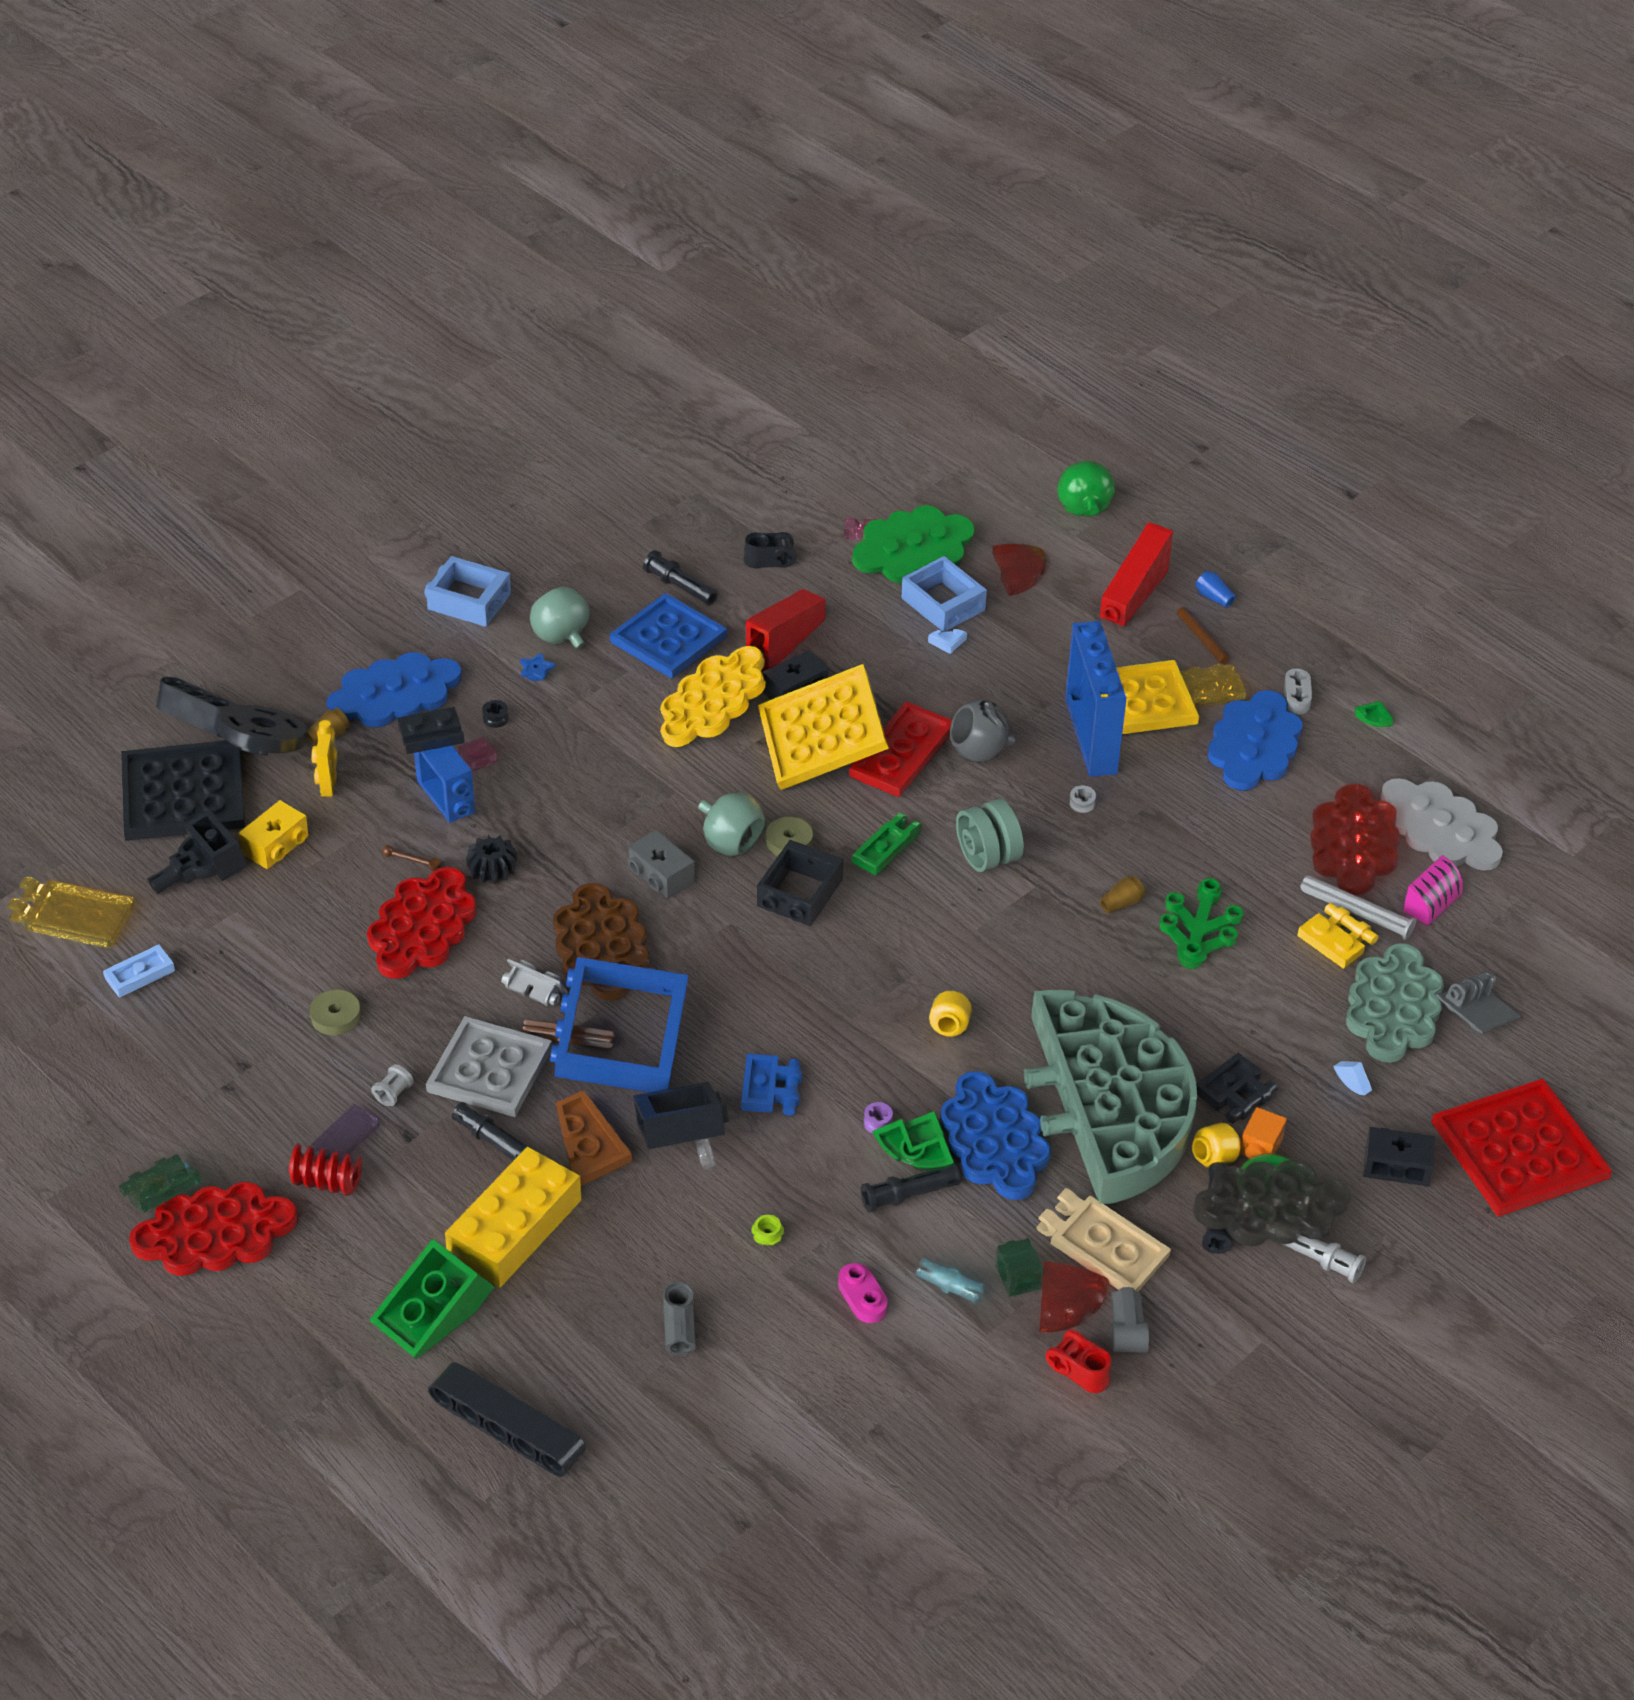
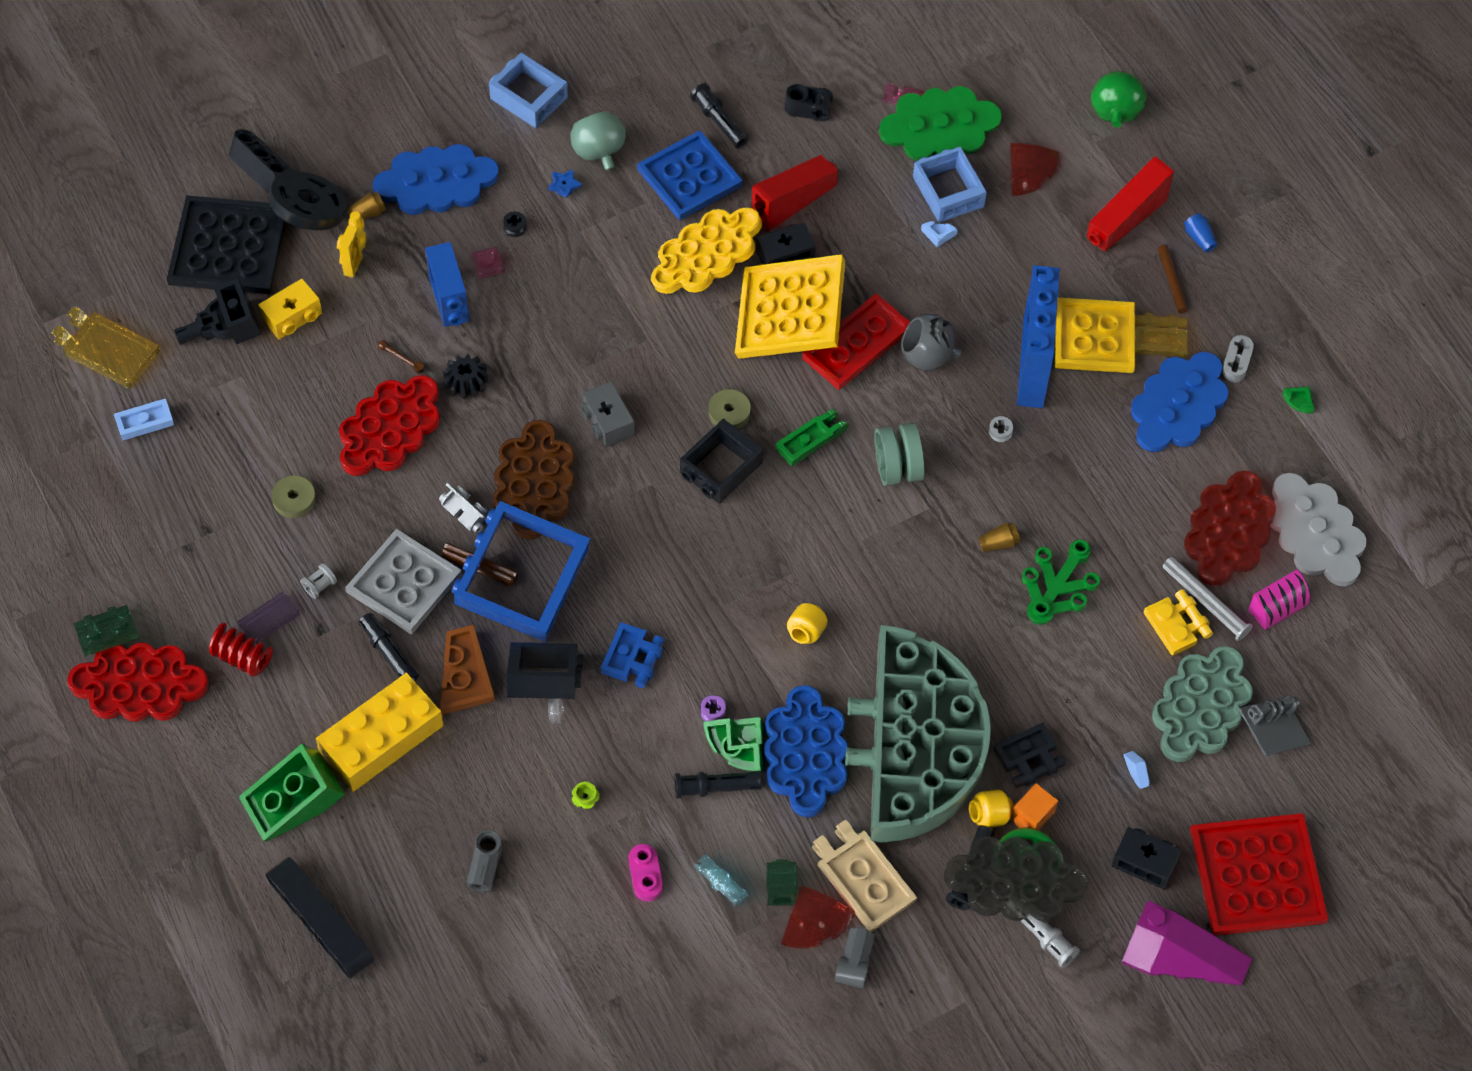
camera: 15 degrees right, 15 degrees up
(430, 730) = (441, 243): black plate -> none
(729, 822) = (680, 386): sand green piece -> none
(1081, 1362) = (799, 980): red piece -> none
(1463, 1232) = (1179, 948): none -> magenta wedge

